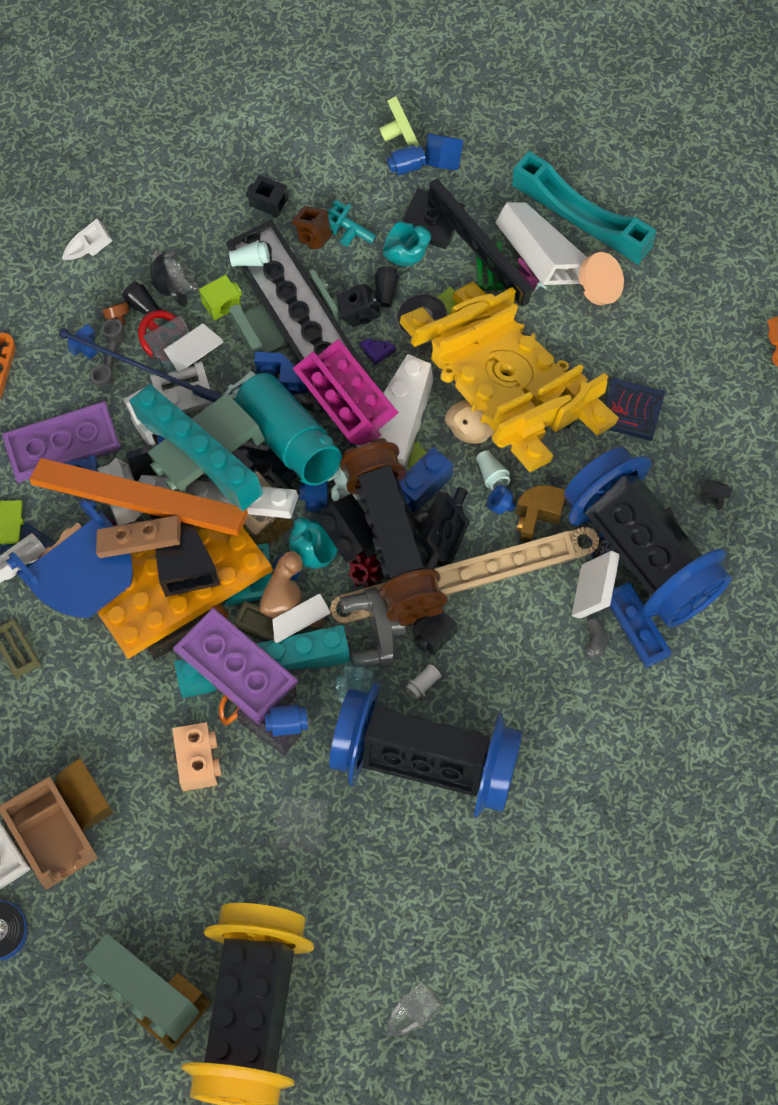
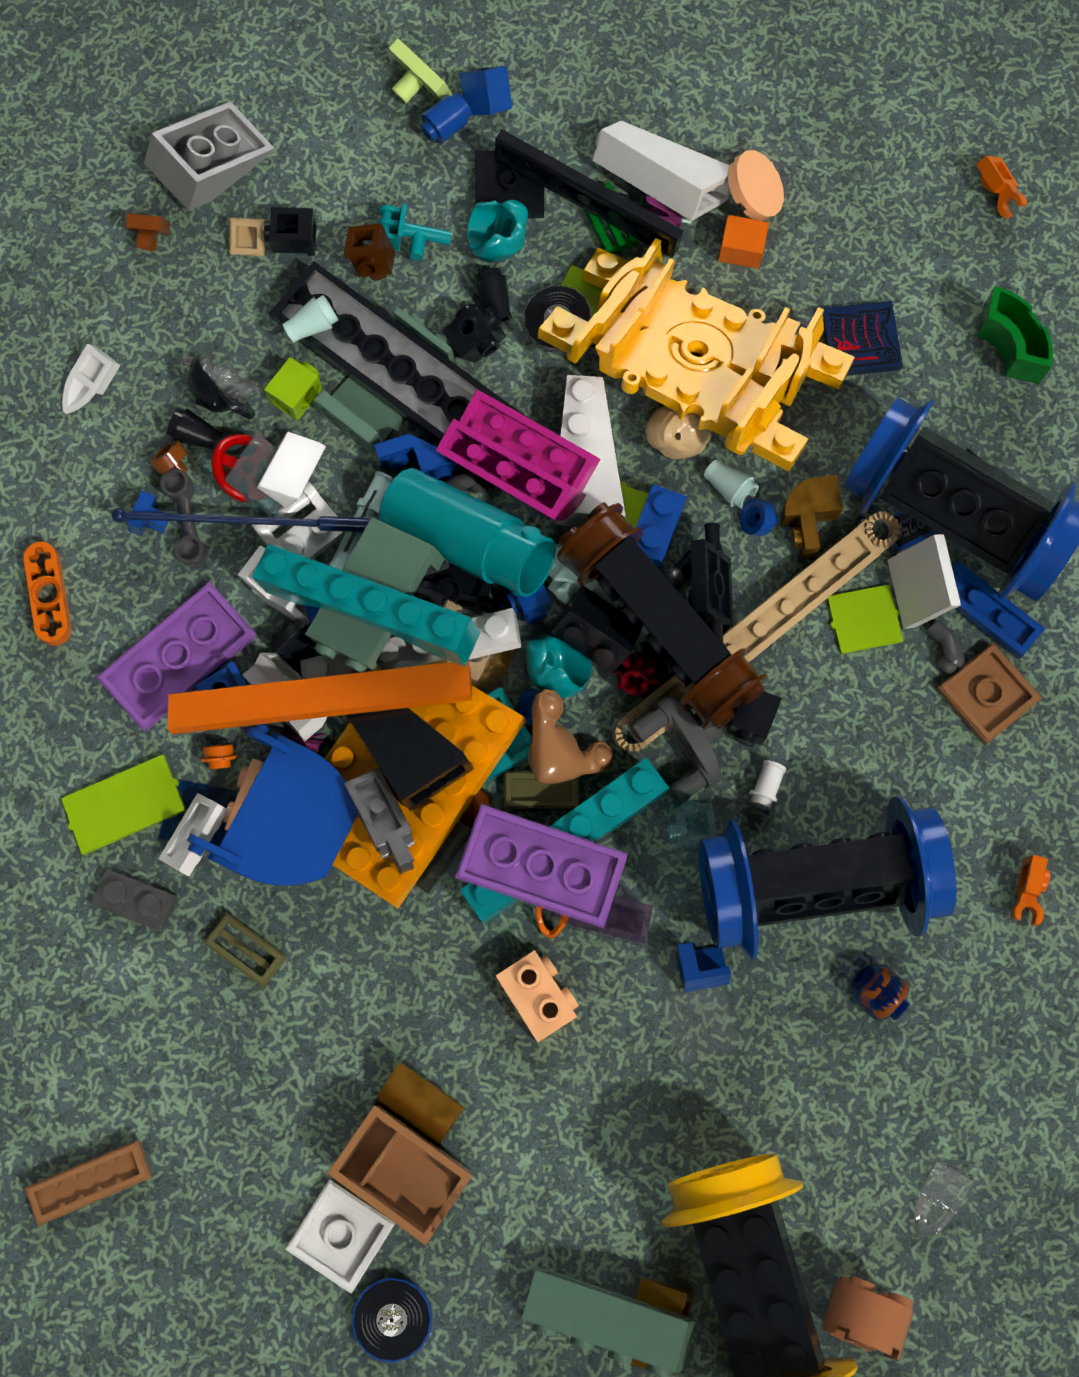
camera: 25 degrees left, 10 degrees up
(57, 515) = (218, 756): none -> orange plate
(138, 537) = (345, 751): medium nougat plate -> none
(143, 591) = (382, 818): none -> flat silver hinge
(171, 161) = (147, 228): none -> dark orange tile
(233, 126) = (205, 154): none -> light grey slope
(235, 189) = (247, 236): none -> tan slope
(286, 720) = (639, 912): blue brick -> none
(299, 617) = (588, 770): white sticker -> none
(317, 786) = (701, 967): none -> blue panel
(321, 1064) = (868, 1318): none -> nougat brick
(377, 350) = (519, 381): dark purple tile -> none
(437, 852) = (880, 992): none -> clear blue head
(546, 598) = (865, 619): none -> lime piece
(576, 313) = (743, 241): none -> orange panel
(582, 821) = (1032, 881): none -> orange plate
(612, 683) = (989, 693): none -> medium nougat tile
(622, 233) = (752, 117): teal arch -> none
(717, 490) = (1008, 402): black tile -> none
(743, 443) = (1017, 335): none -> green brick

